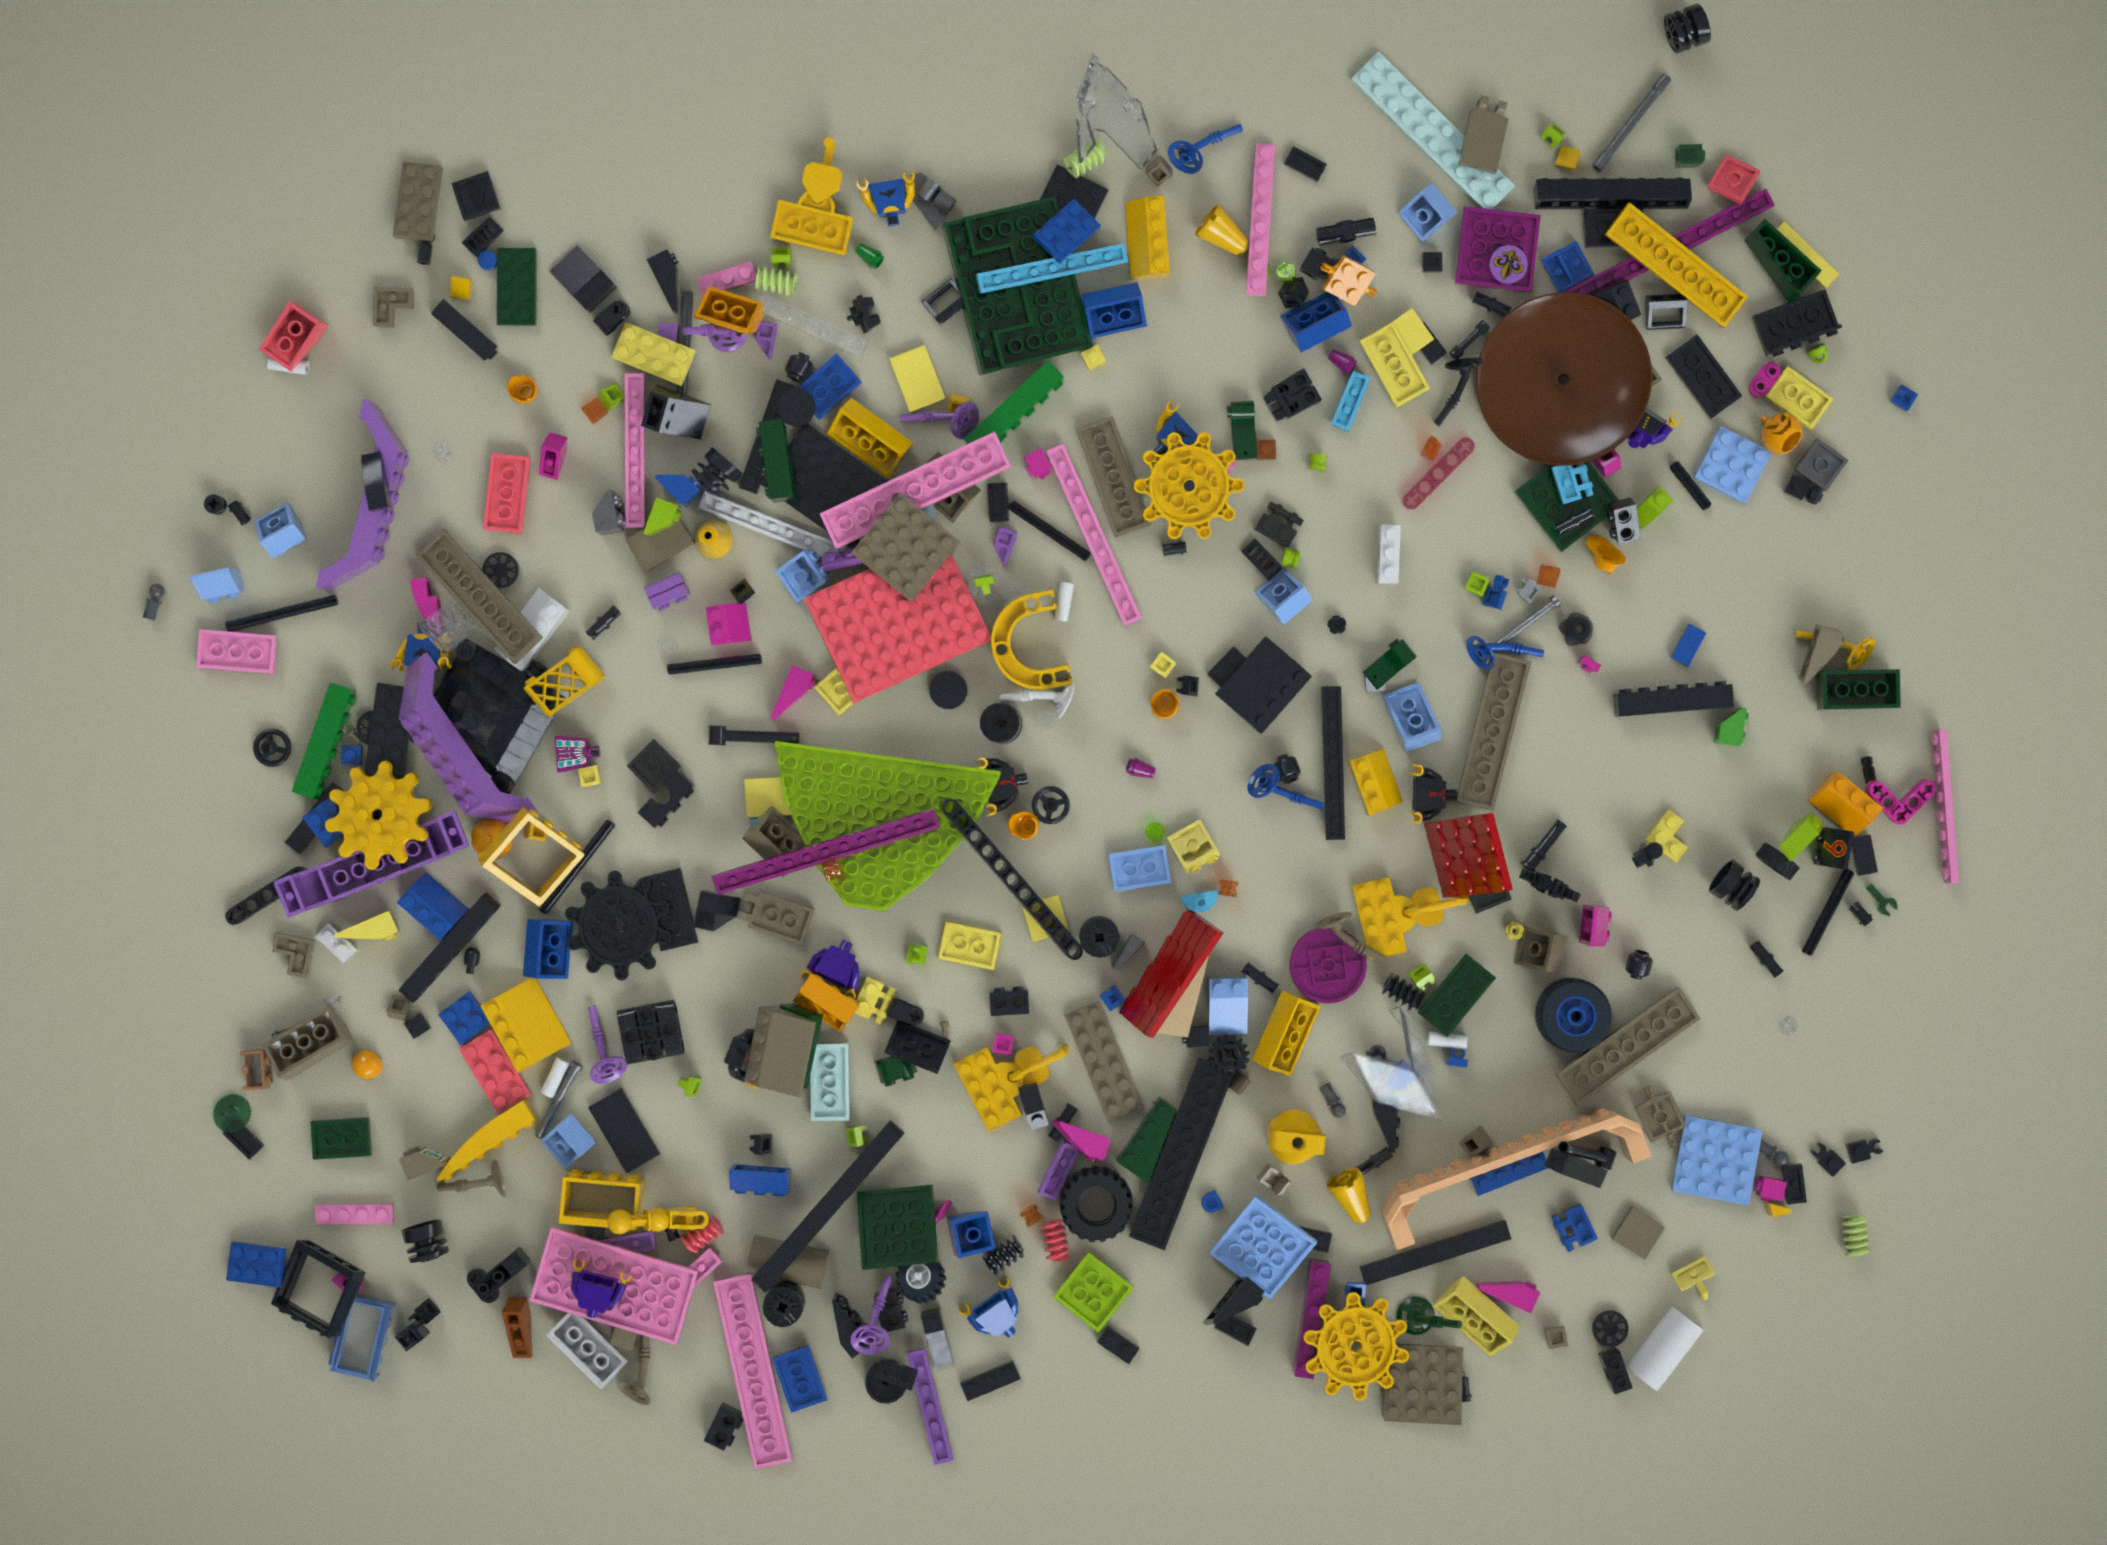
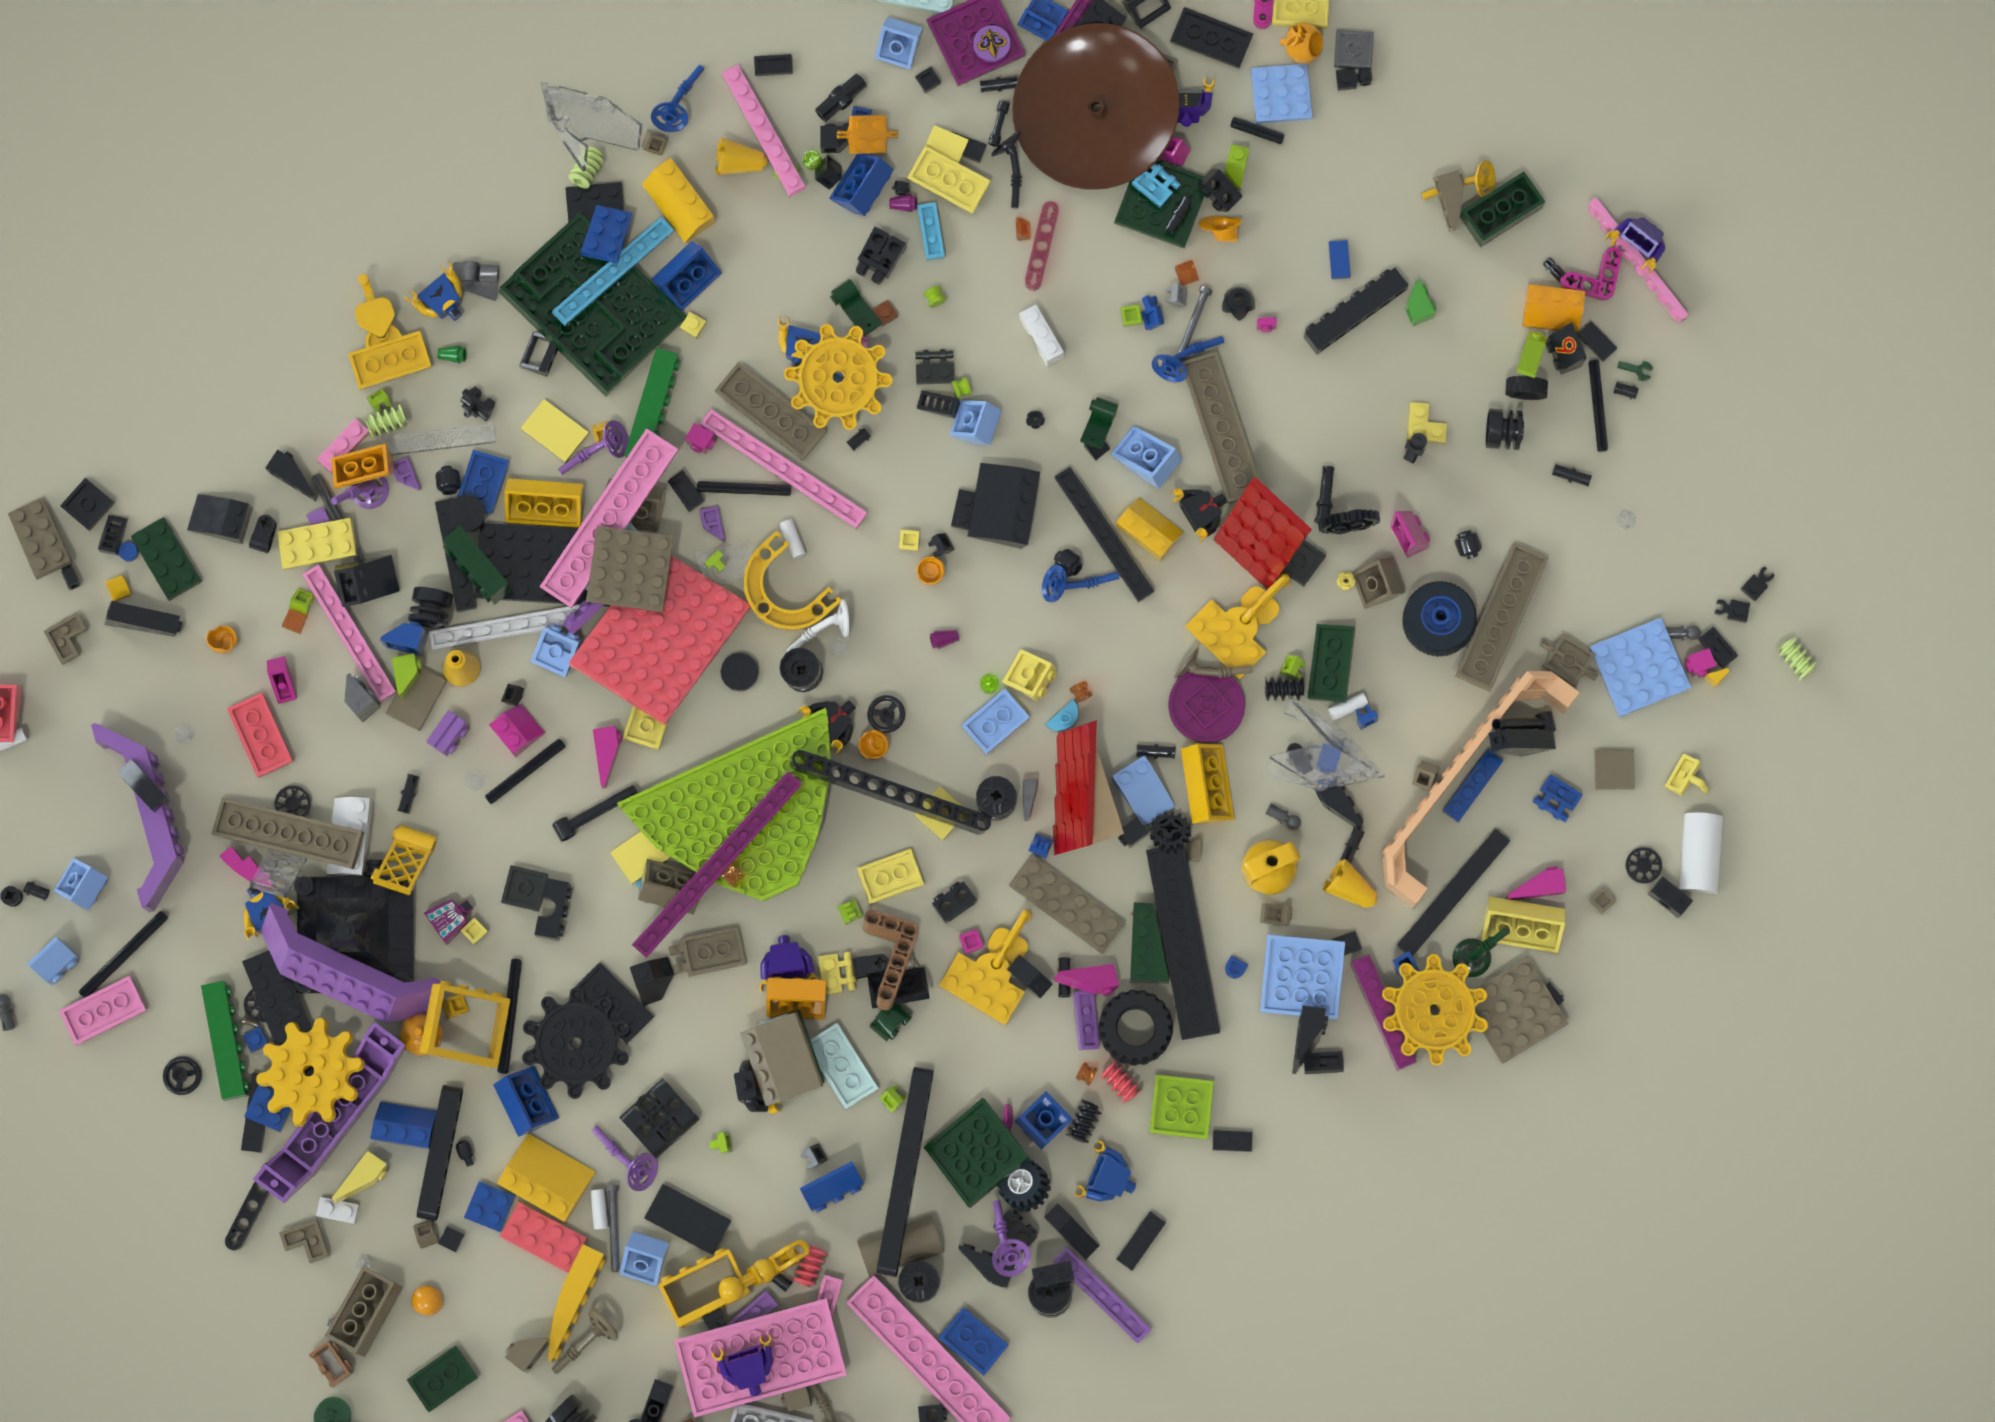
camera: 30 degrees left, 10 degrees down
(932, 1021) = (898, 957): none -> medium nougat beam
(1348, 345) = (901, 187): none -> black plate
(1965, 792) = (1642, 236): none -> torso

